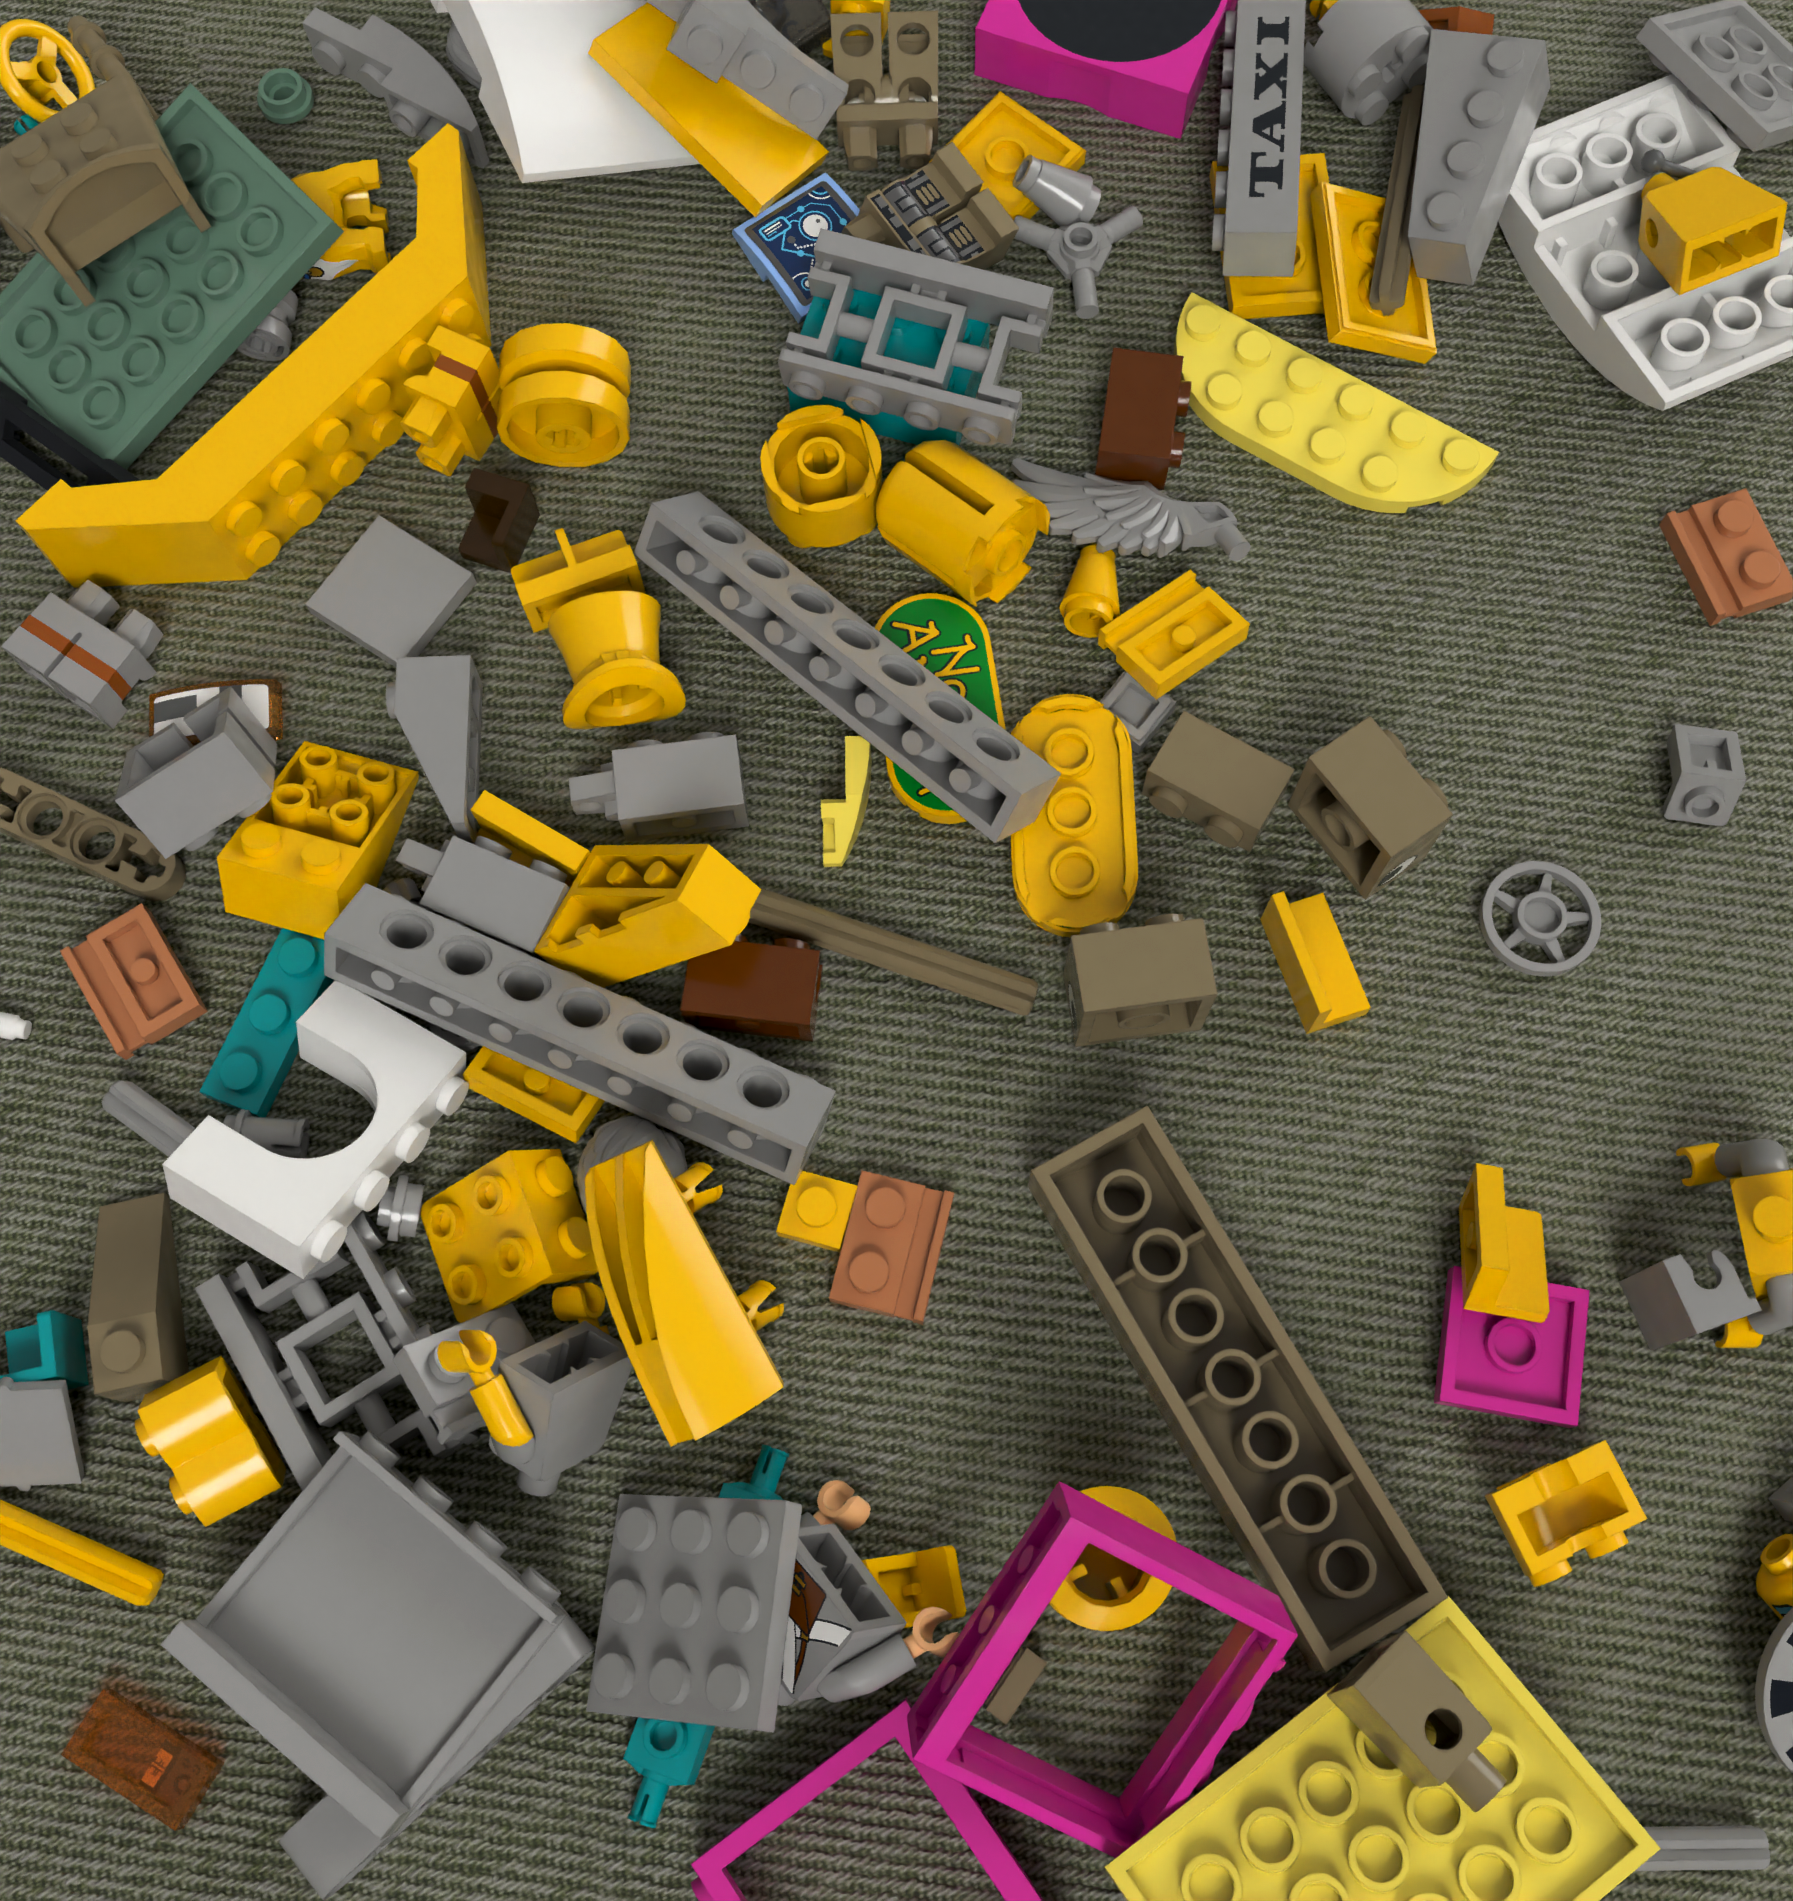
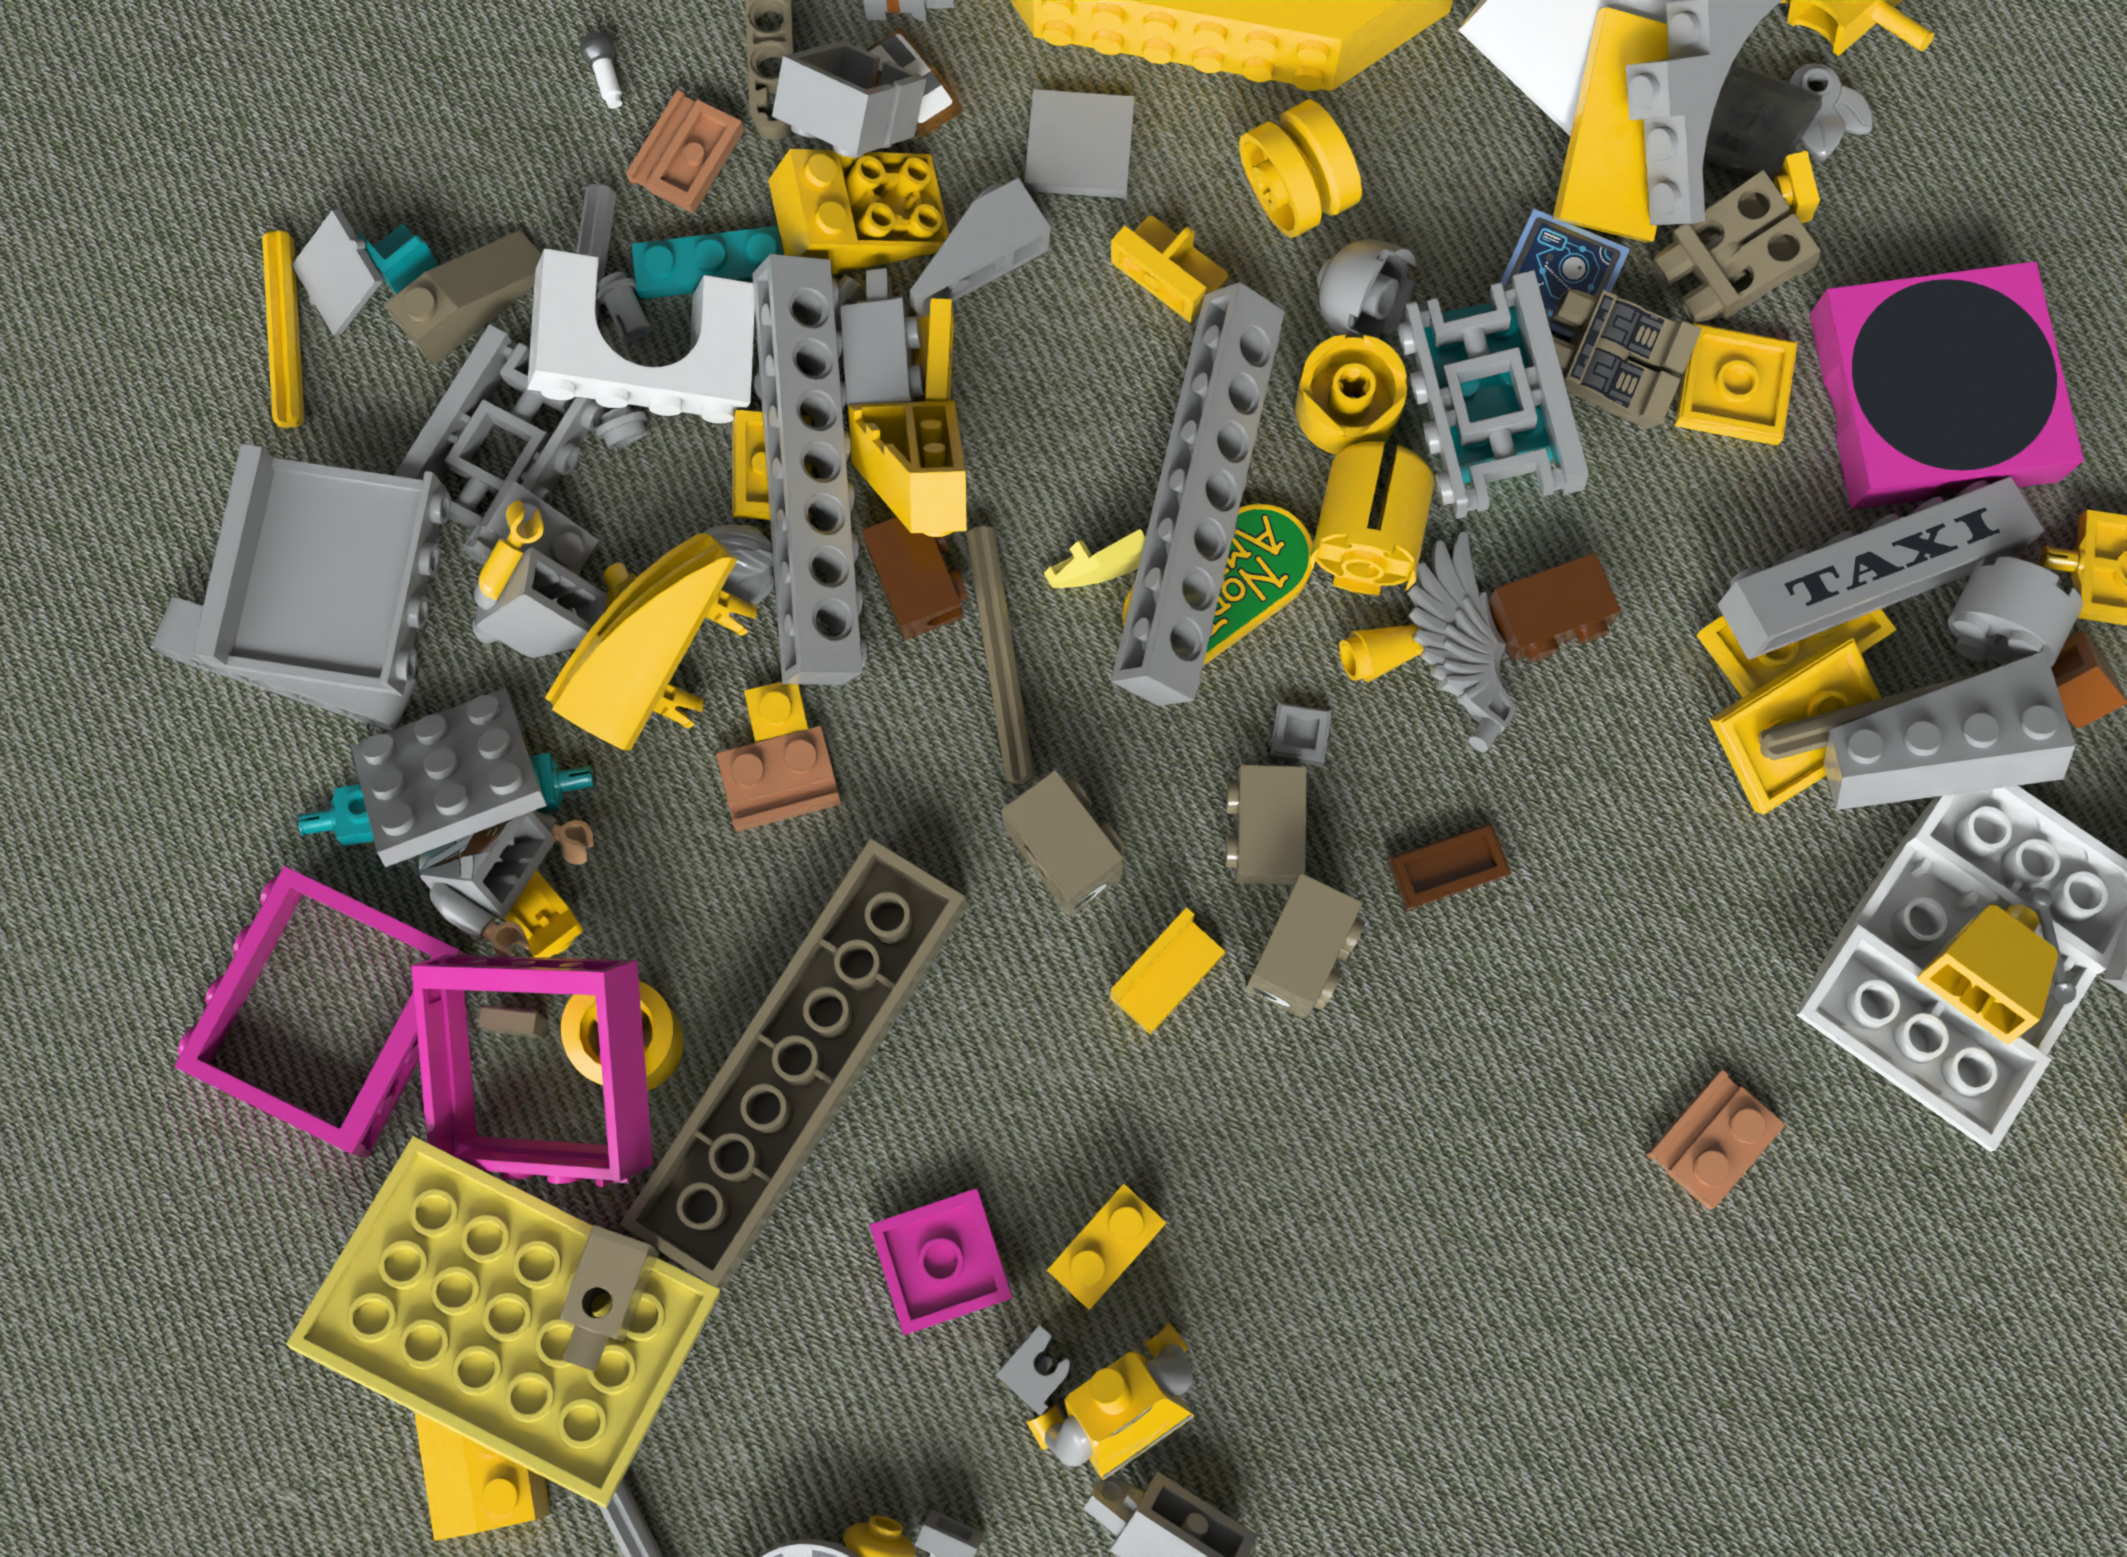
camera: 60 degrees right, 5 degrees up
(142, 1759) = (182, 483): clear orange tile -> none
(210, 1442) = (396, 397): yellow brick -> none
(455, 404) = (1246, 91): yellow hips -> none
(501, 520) = (1179, 186): dark brown panel -> none
(508, 1231) = (644, 506): yellow bracket -> none
(614, 661) = (1105, 330): yellow hat -> none
(668, 787) = (1036, 429): light grey hinge -> none
(717, 411) = (1365, 288): none -> light grey cylinder
(1058, 191) = (1723, 439): light grey cone -> none
(1080, 251) = (1682, 483): light grey piece -> none
(1081, 851) = (1157, 754): yellow tile -> none
(1173, 634) = (1378, 730): yellow plate -> none
(1319, 418) = (1646, 749): light yellow plate -> none
(1341, 647) = (1448, 866): none -> reddish brown tile
(1501, 1251) = (1004, 1218): yellow panel -> none
(1540, 918) = (1301, 1130): light grey wheel -> none
(1566, 1509) = (832, 1351): yellow cylinder -> none
(1580, 1166) = (1106, 1246): none -> yellow piece
(1705, 775) = (1498, 1201): light grey bracket -> none

